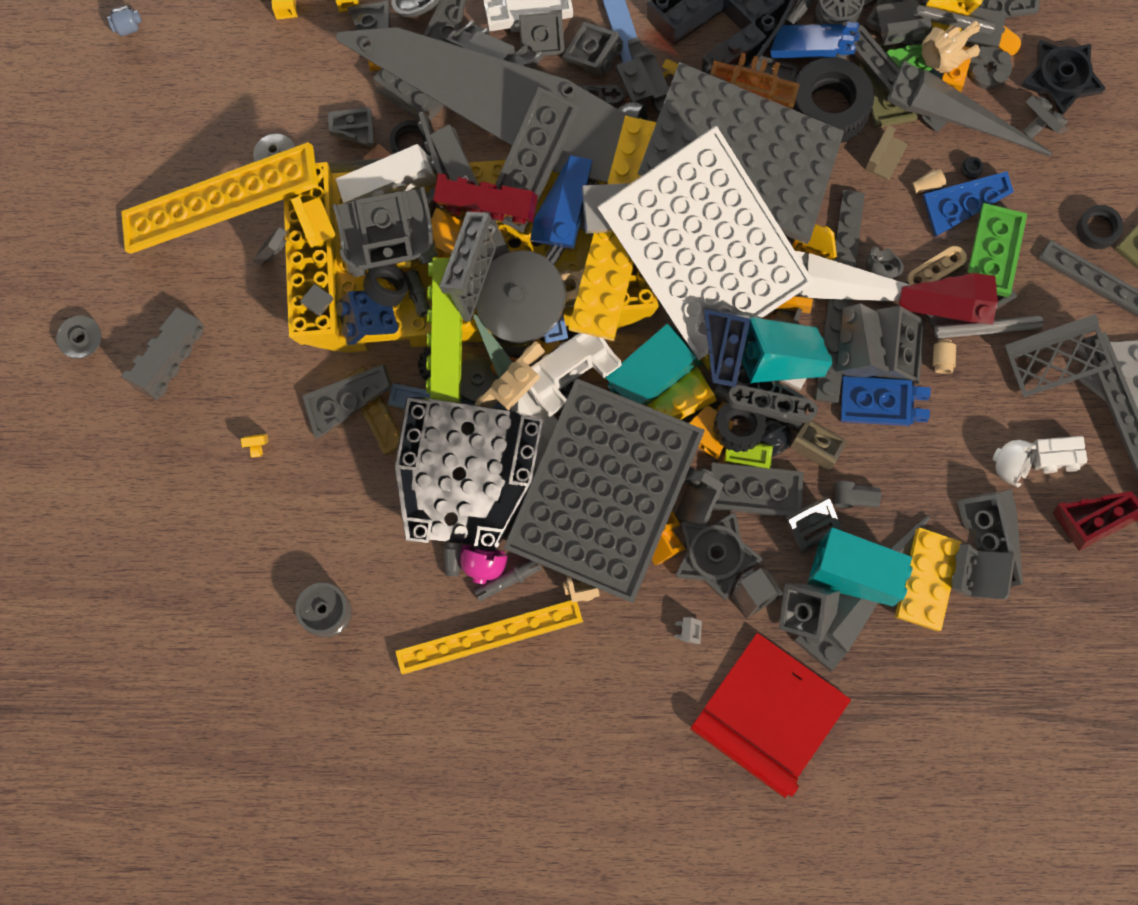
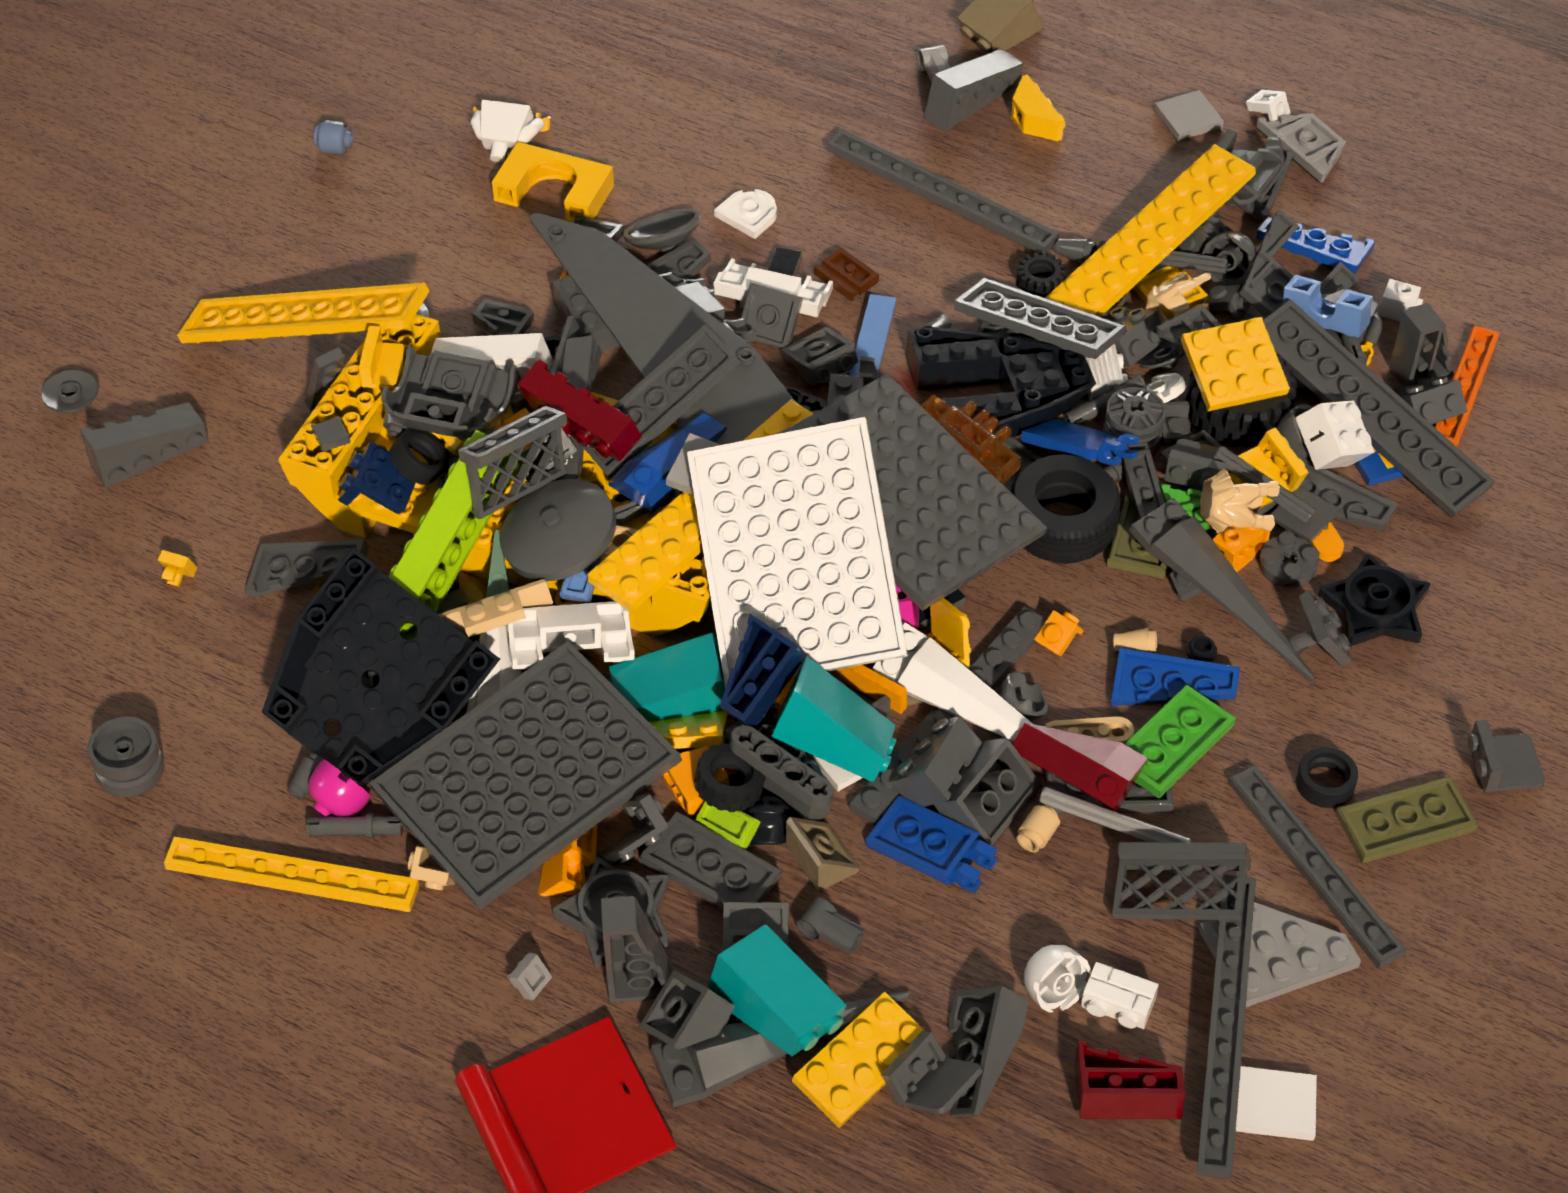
camera: 25 degrees right, 25 degrees down
(876, 199) = (1058, 632): none -> light orange bracket
(886, 154) = (1101, 593): dark tan panel -> none

